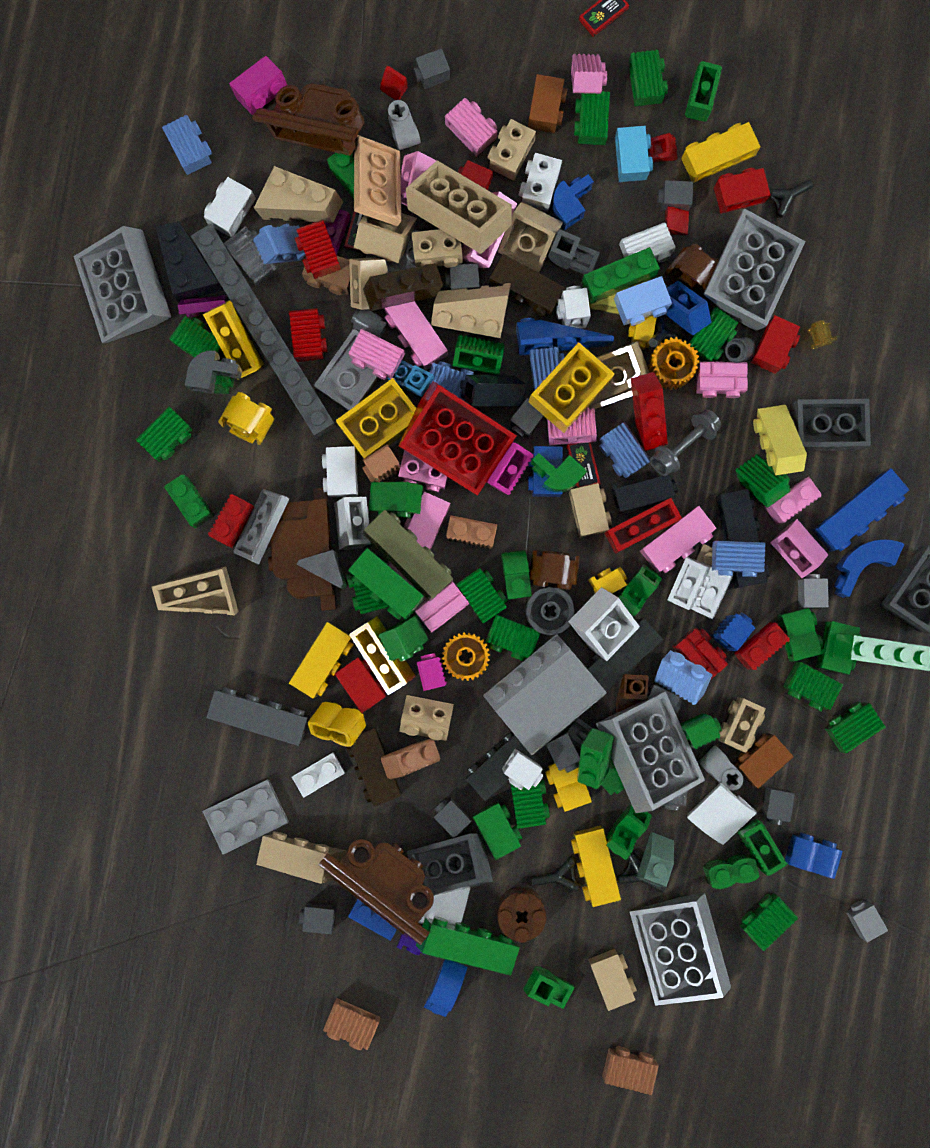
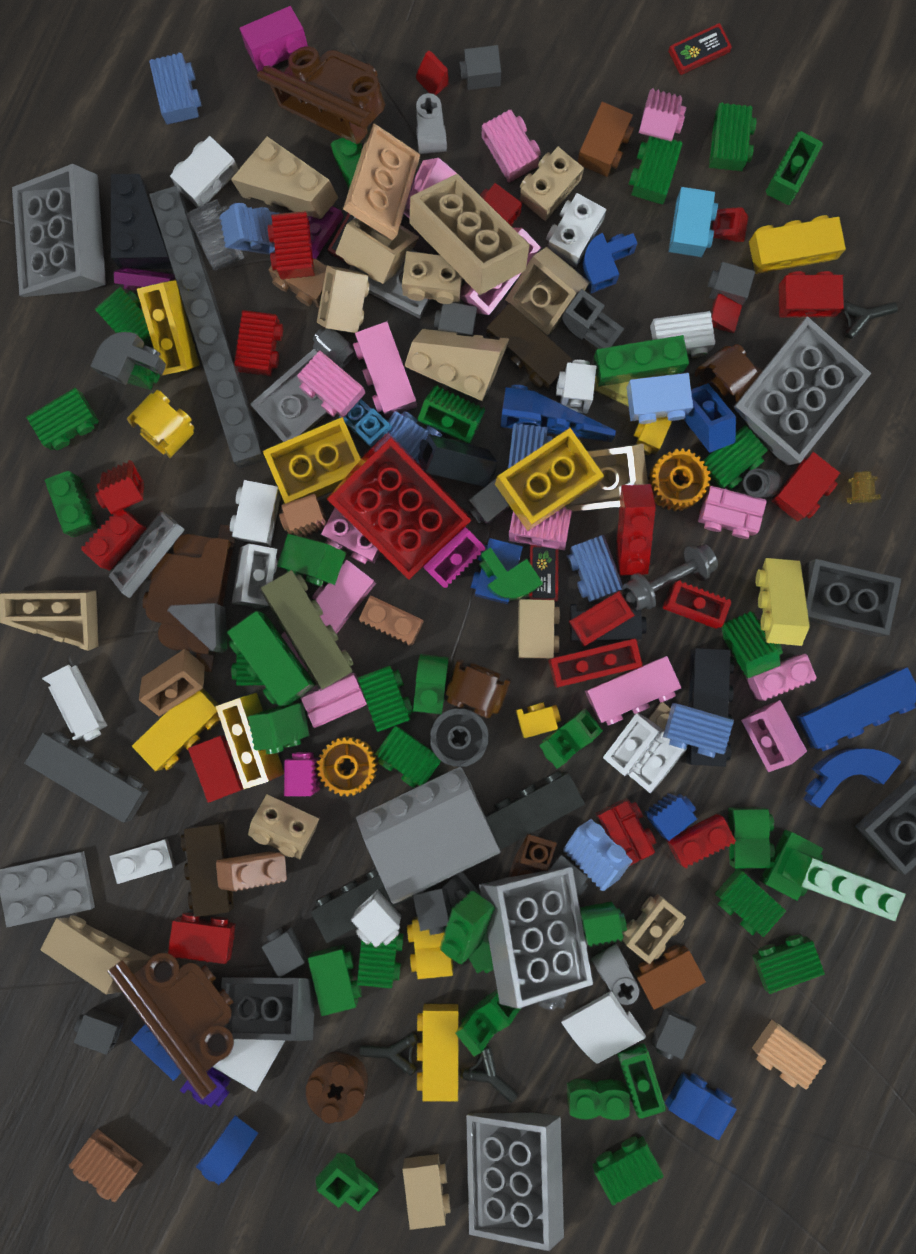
camera: 25 degrees right, 0 degrees up
(226, 478) = (120, 487): none -> red brick
(233, 660) = (76, 703): none -> white window
(308, 624) = (172, 682): none -> medium nougat brick
(337, 723) = (176, 808): yellow brick -> none
(383, 824) = (202, 938): none -> red brick
(402, 286) = (379, 312): dark brown brick -> none
(469, 946) = (263, 1110): green brick -> none
(604, 623) = (518, 768): white brick -> none
(639, 488) = (601, 618): none -> red tile
(657, 861) = (513, 1064): sand green slope -> none
(662, 332) = (675, 441): pearl dark grey piece -> none
(712, 459) = (697, 604): none -> red brick
(813, 592) = (778, 791): light grey brick -> none
(866, 920) = (745, 1199): light grey brick -> none
(873, 798) = (788, 1054): none -> light nougat brick

